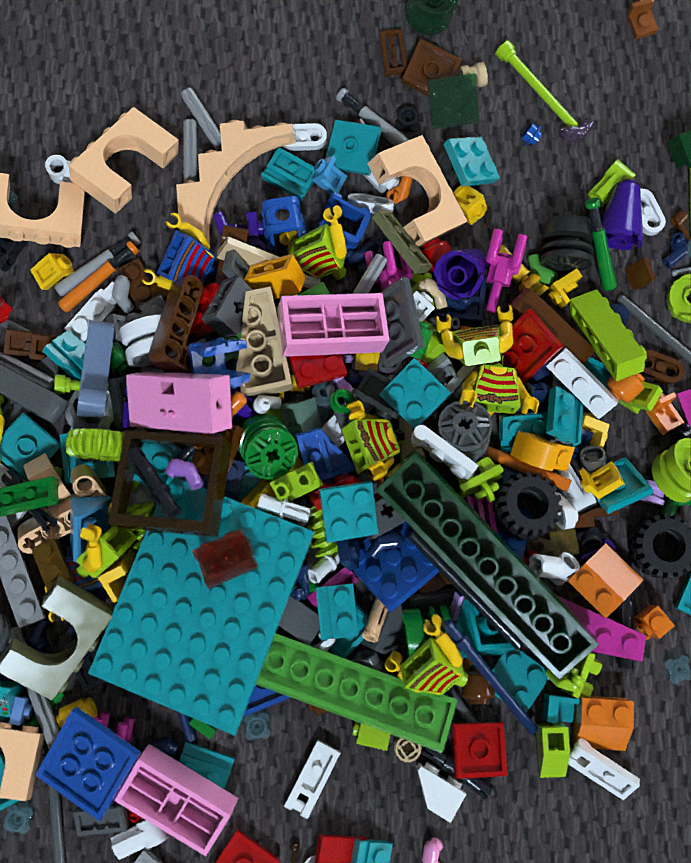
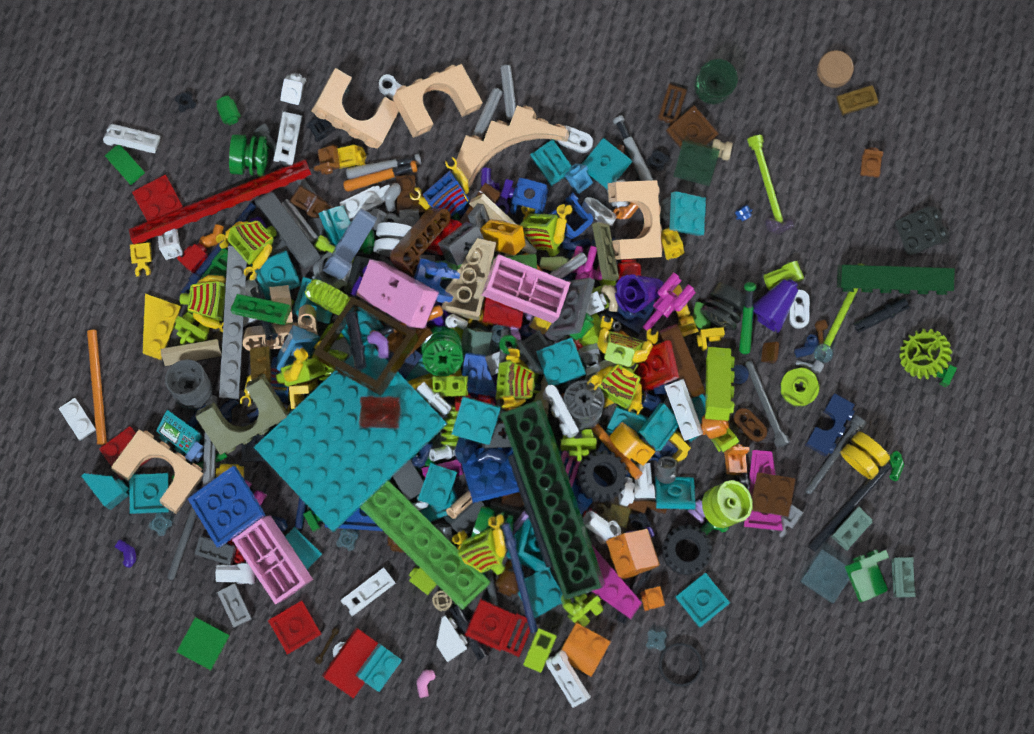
camera: 30 degrees right, 0 degrees up
(28, 285) = (328, 160): none -> dark orange bracket
(346, 285) = (552, 263): none -> yellowish green cone
(525, 745) = (524, 619): none -> red tile
(558, 707) = (559, 626): teal panel -> none
(602, 480) = (663, 484): yellow bracket -> none

